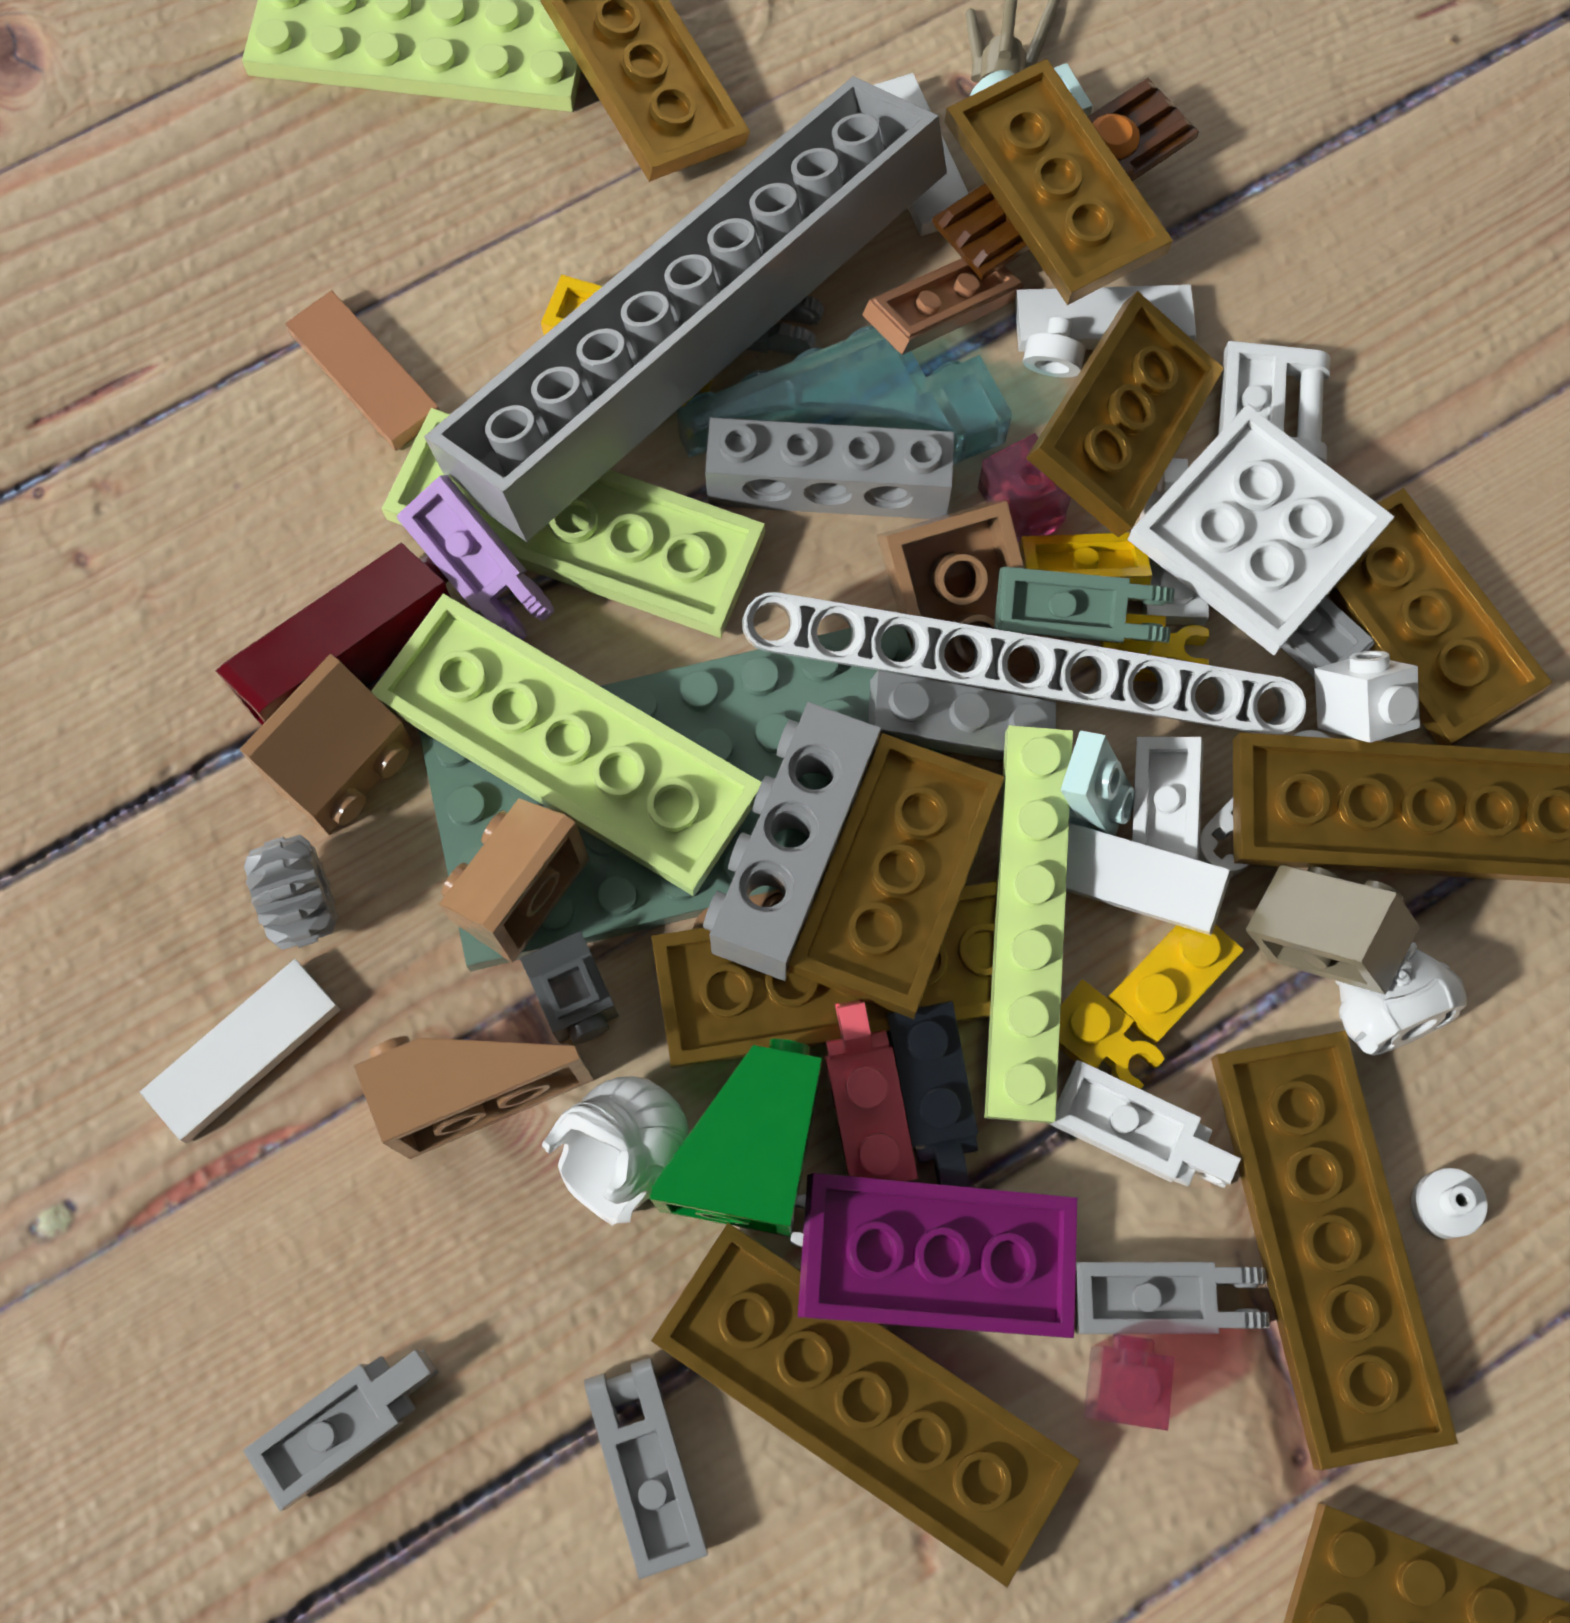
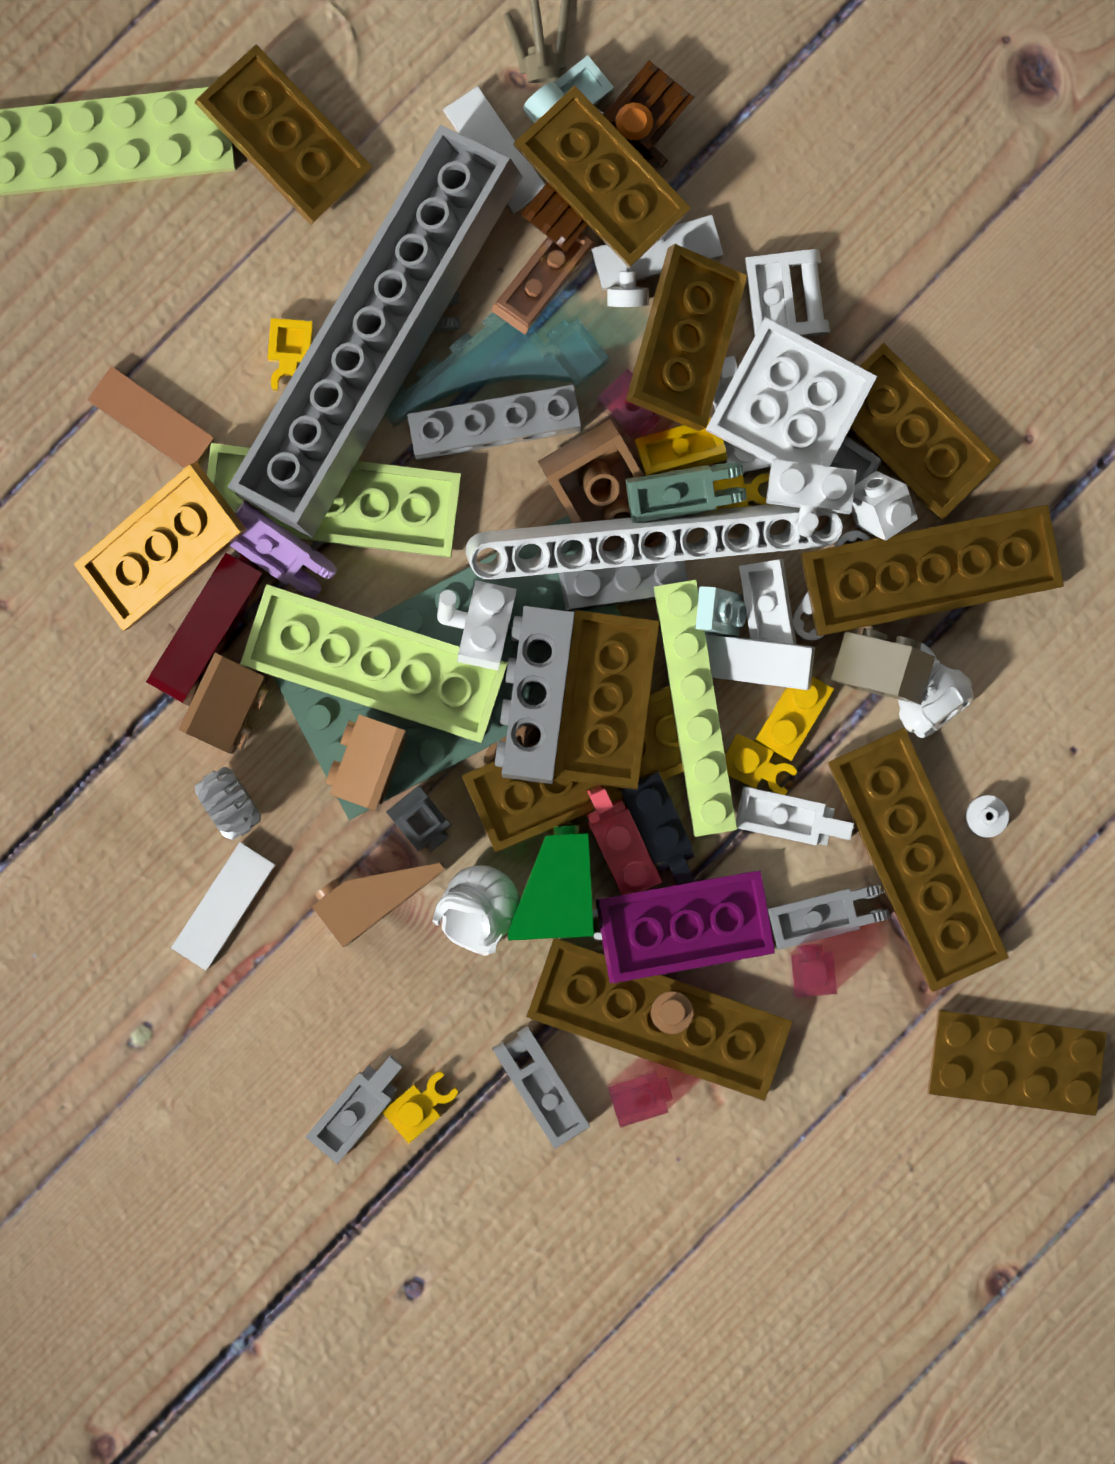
camera: 15 degrees left, 15 degrees up
(313, 512) = (160, 546): none -> plate
(435, 1450) = (415, 1110): none -> yellow plate
(740, 724) = (483, 624): none -> white plate
(801, 1527) = (640, 1098): none -> clear pink brick
(887, 1393) = (671, 1012): none -> medium nougat plate
(1273, 642) = (810, 489): none -> white plate

